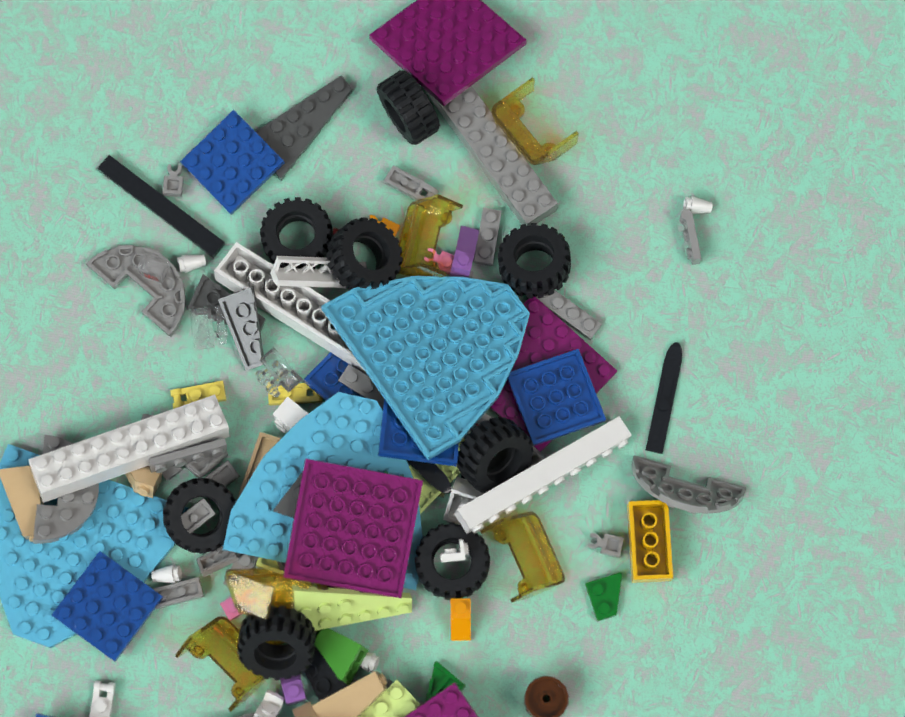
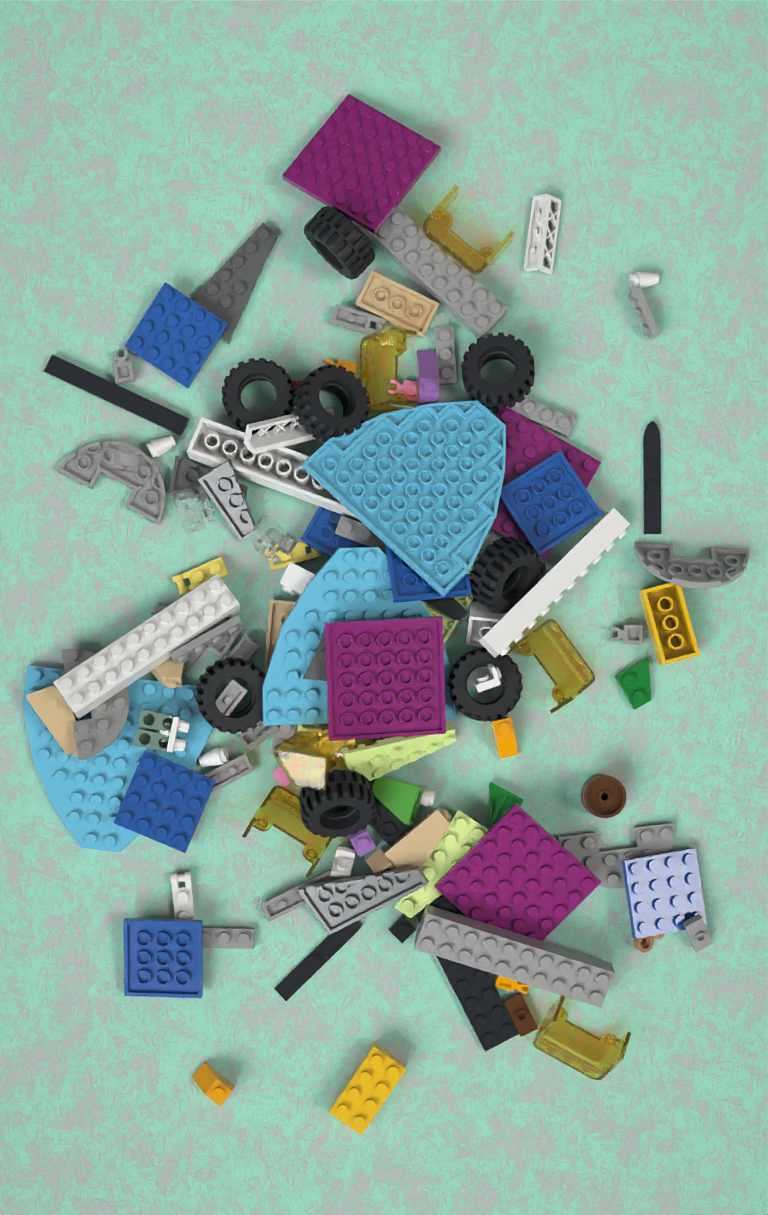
camera: 15 degrees left, 10 degrees up
(126, 538) = (167, 731): none -> sand green hips
(452, 178) = (397, 304): none -> tan plate
(605, 139) = (539, 232): none -> white fence

